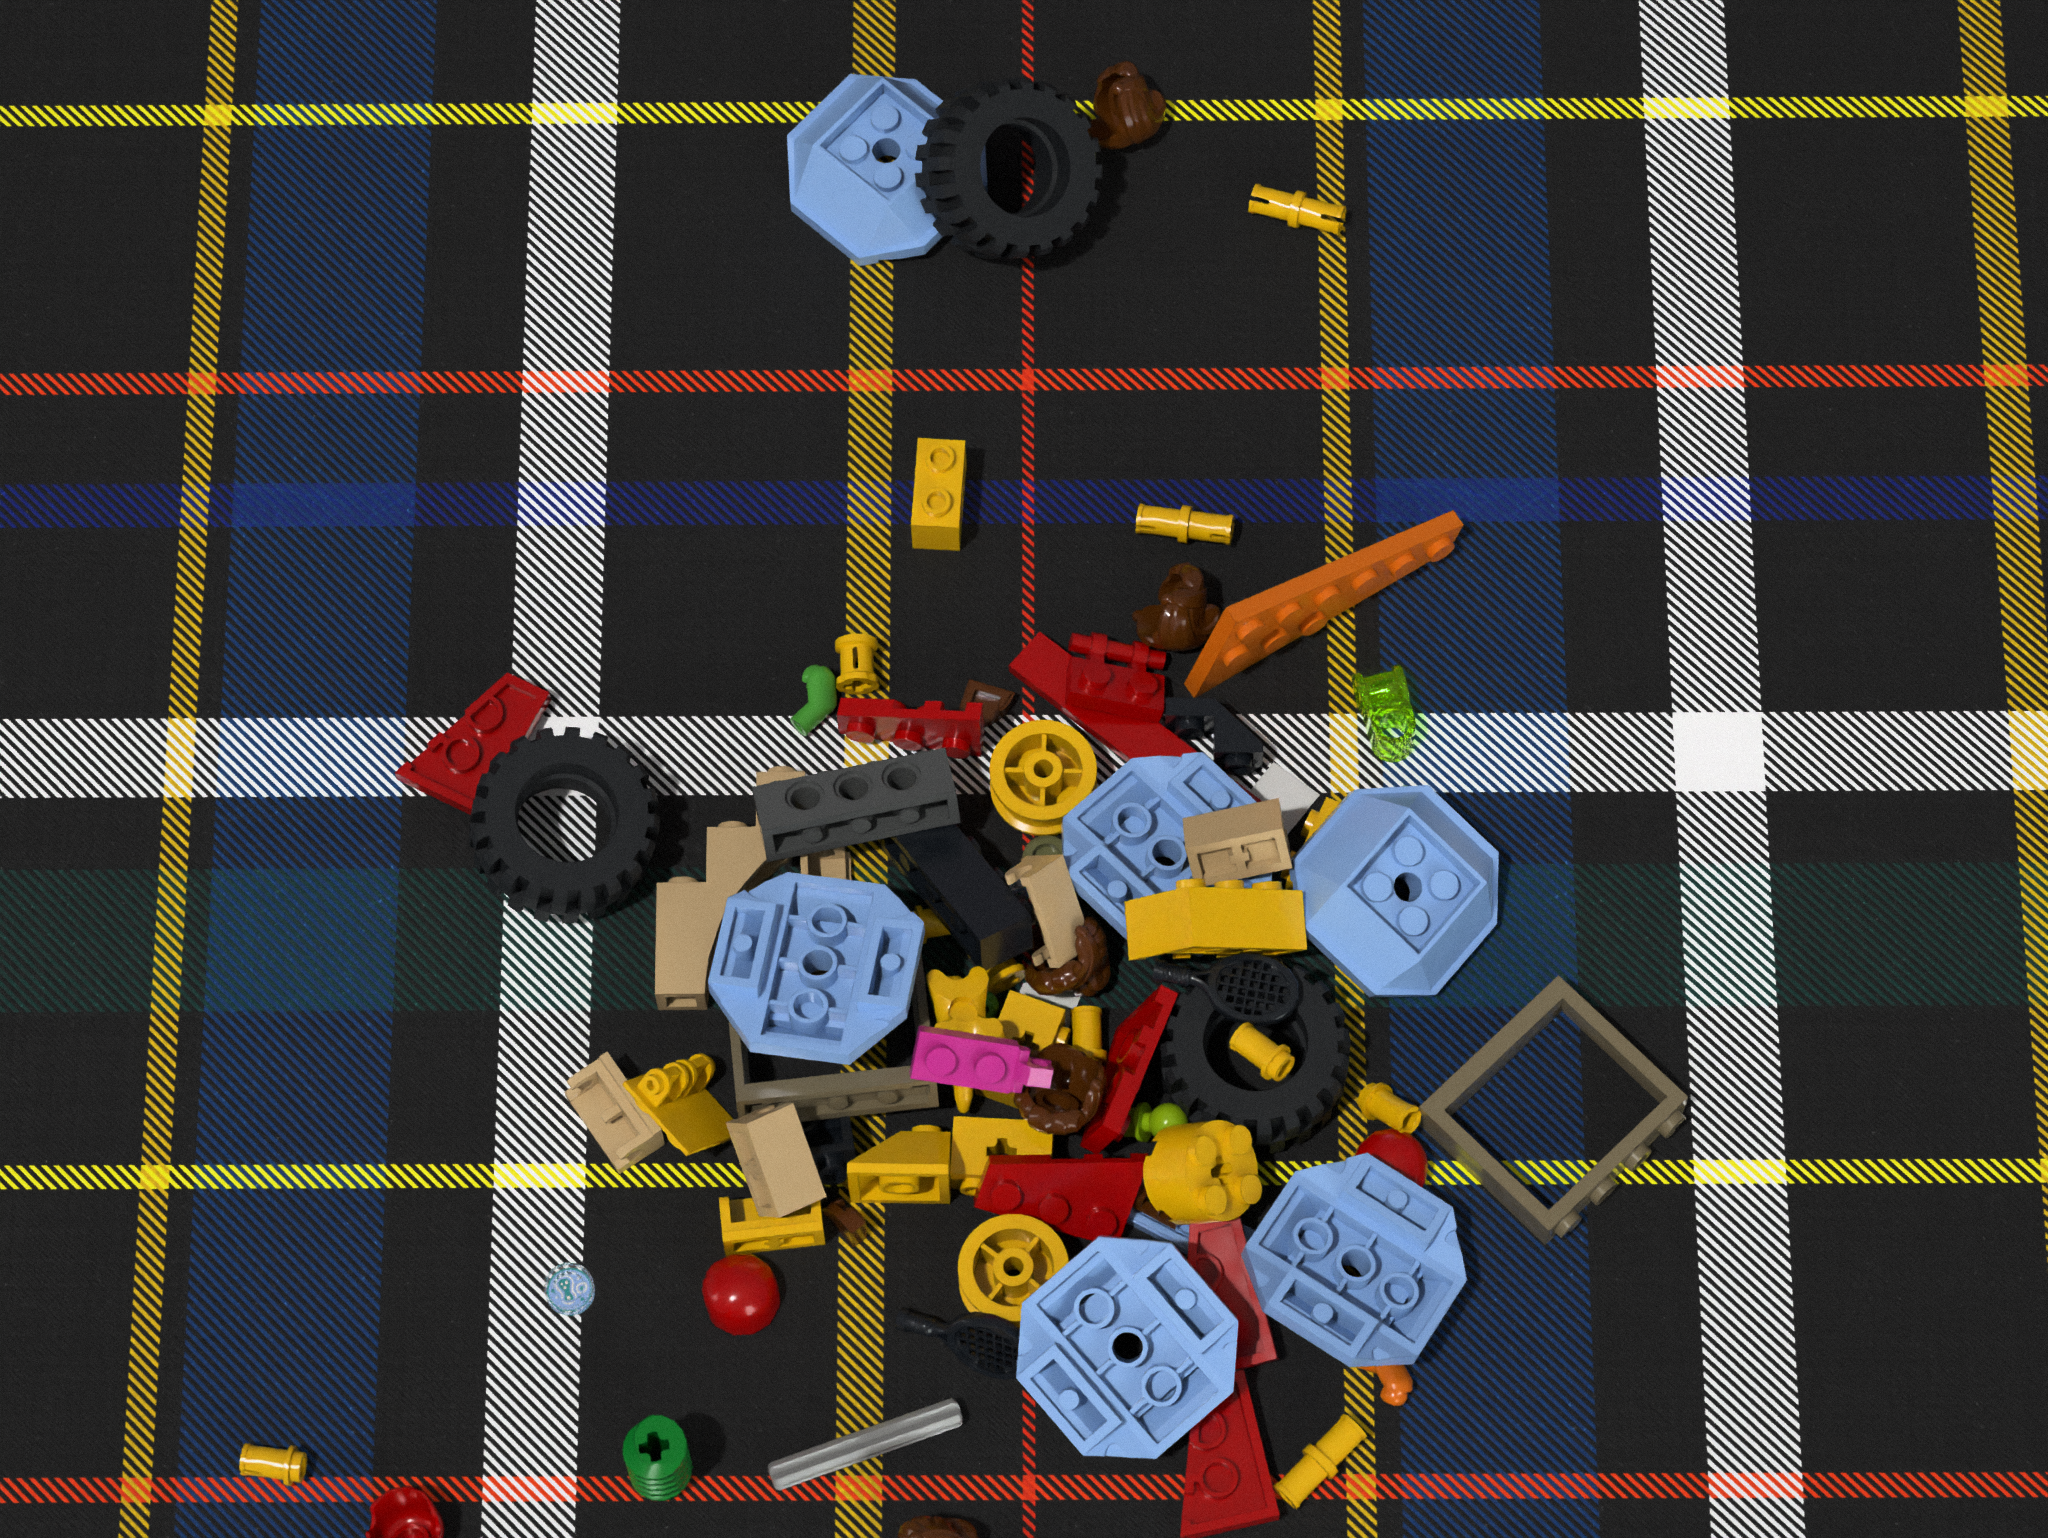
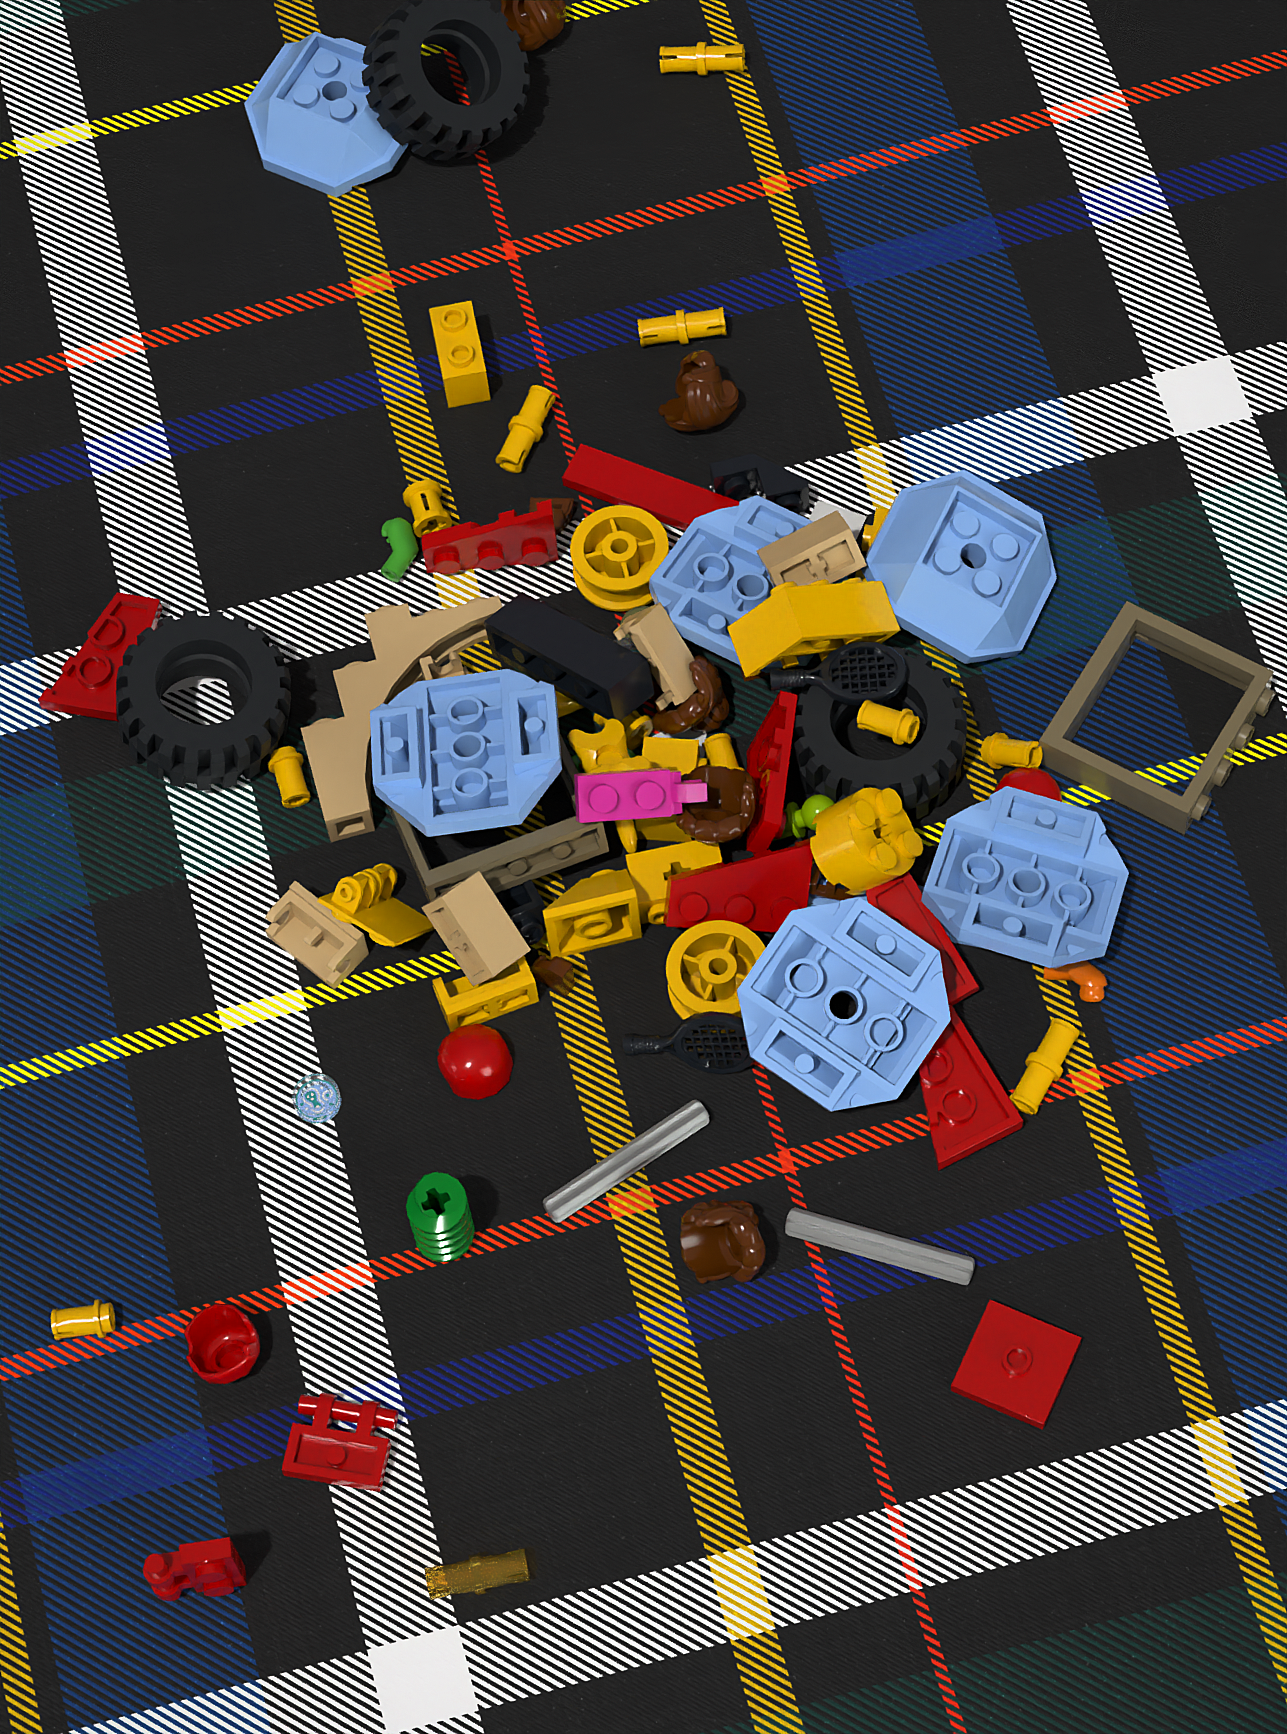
camera: 10 degrees left, 5 degrees down
(633, 928) = (287, 768): none -> yellow pin
(856, 804) = (462, 613): dark grey brick -> none
(985, 598) = (525, 429): none -> yellow pin
(1111, 687) = (659, 461): red plate -> none
(1306, 603) = (803, 359): orange wing -> none
(1383, 705) = (902, 426): clear neon green piece -> none

